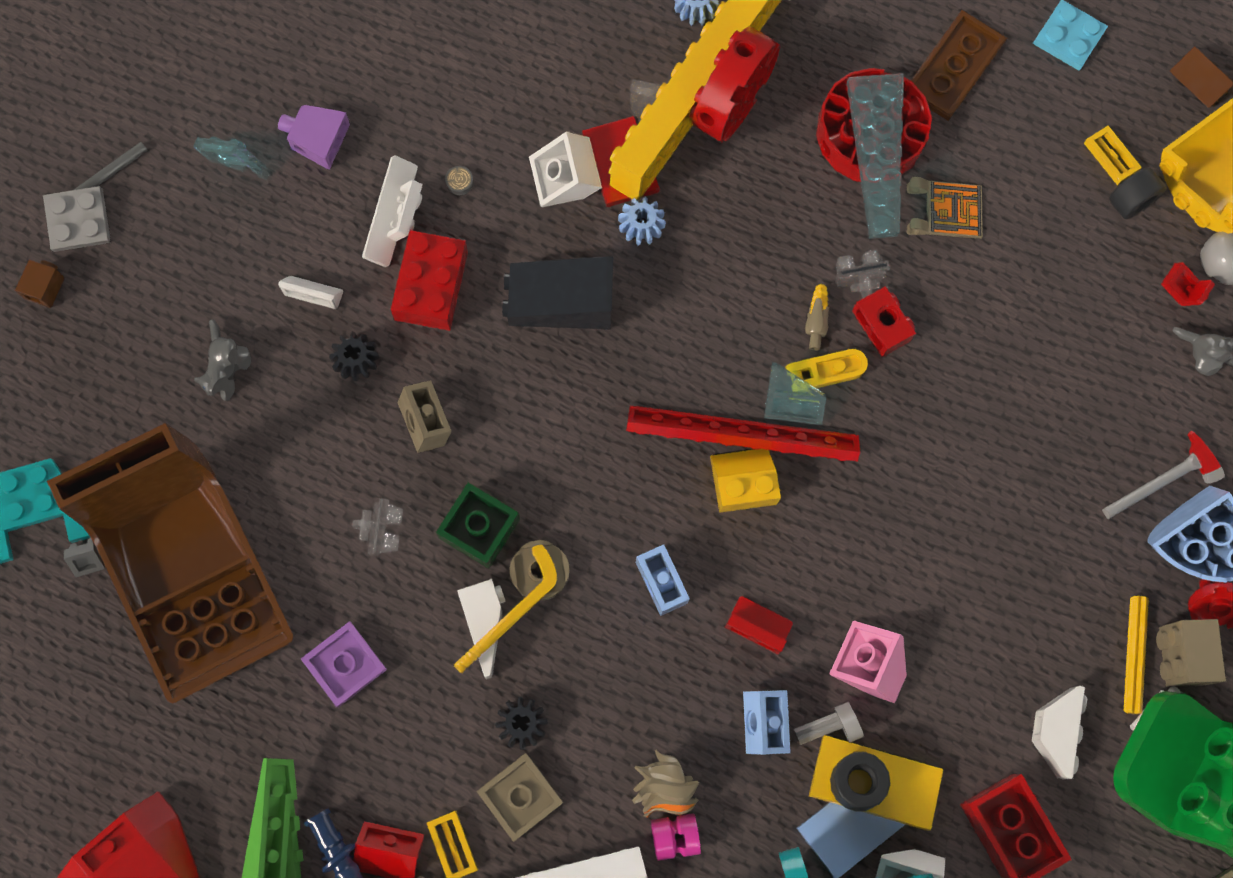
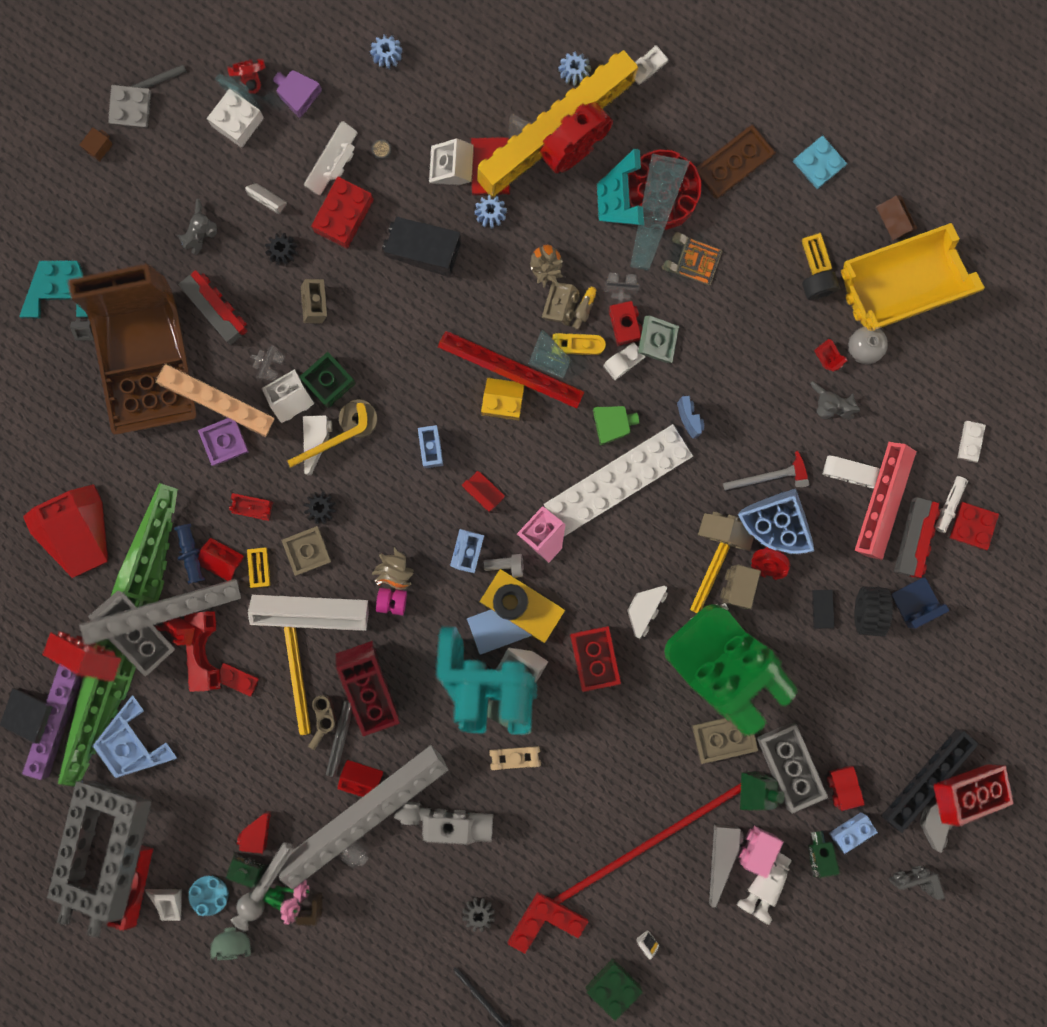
camera: 15 degrees right, 10 degrees up
(236, 192) = (235, 118): none -> white brick
(238, 124) = (247, 70): none -> red tile
(270, 593) = (215, 400): none -> light nougat arch
(276, 468) = (213, 308): none -> piece
(414, 753) = (251, 507): none -> red hinge
(424, 567) = (287, 396): none -> white slope
(426, 57) = (389, 57): none -> light blue gear
(746, 271) = (546, 264): none -> dark tan hair
(783, 319) = (561, 303): none -> dark tan bracket
(811, 150) = (614, 193): none -> teal wing
(900, 375) = (623, 361): none -> white plate
(916, 467) = (613, 423): none -> bright green torso
(940, 330) = (658, 339): none -> sand green plate
(952, 547) = (619, 479): none -> white plate
(1030, 434) = (692, 423): none -> medium blue slope
(1137, 575) = (725, 530): none -> dark tan brick

